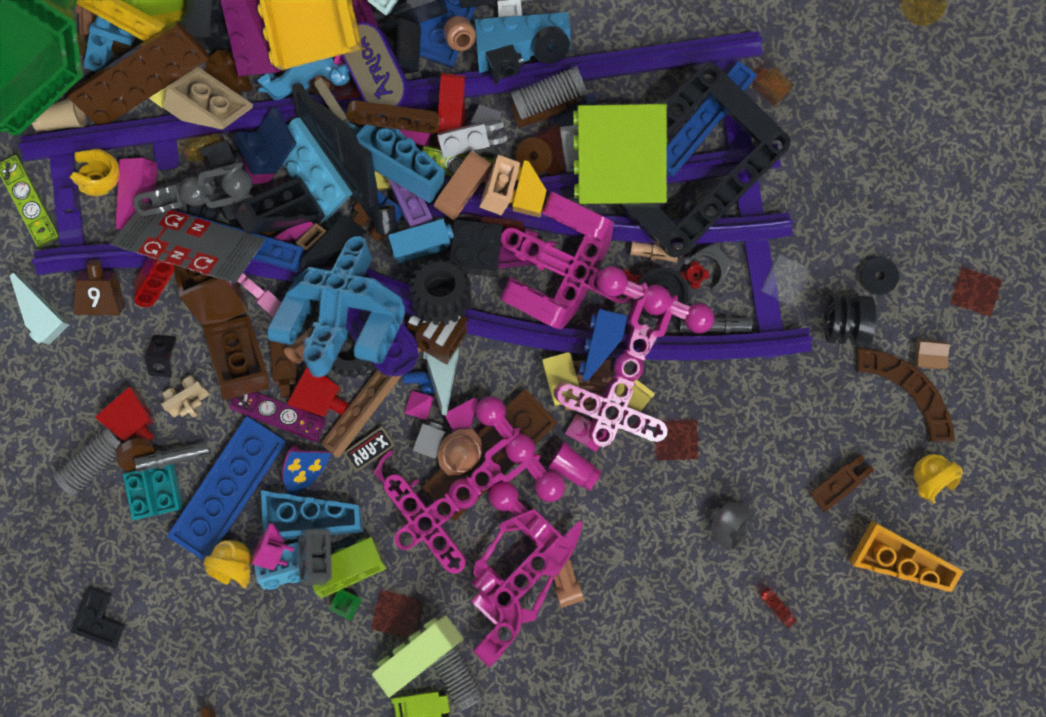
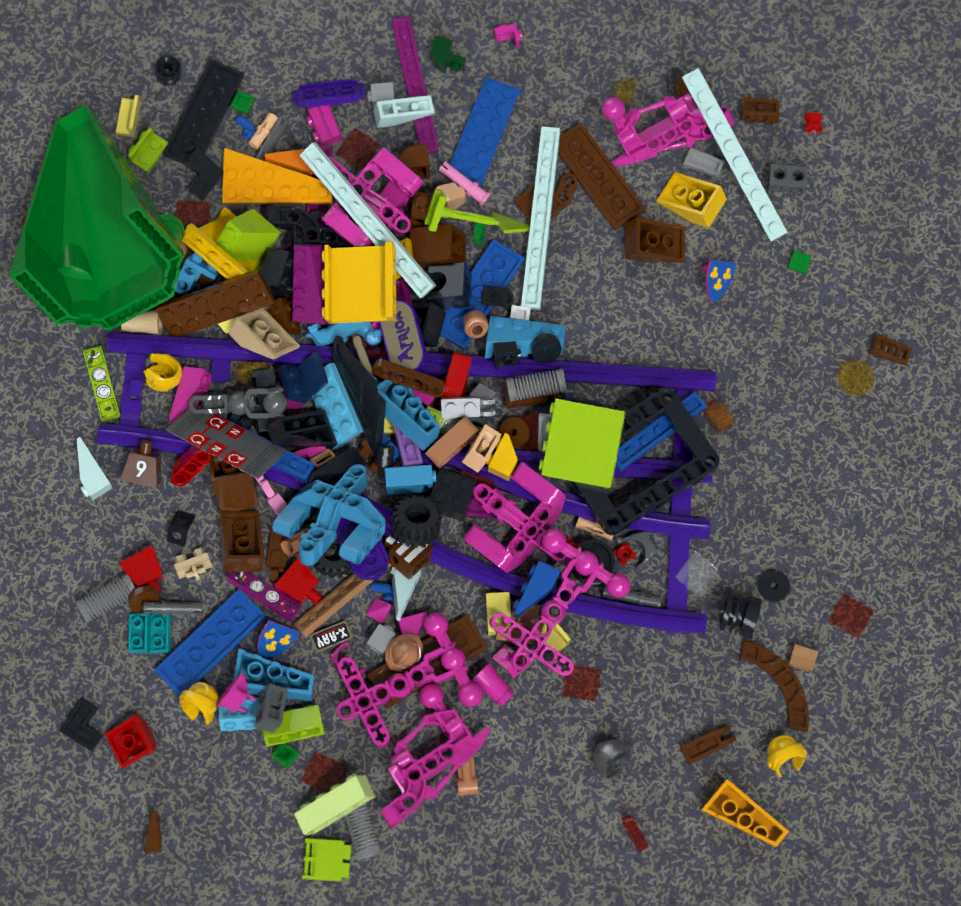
camera: 10 degrees right, 10 degrees down
(159, 626) = (131, 741): none -> red slope

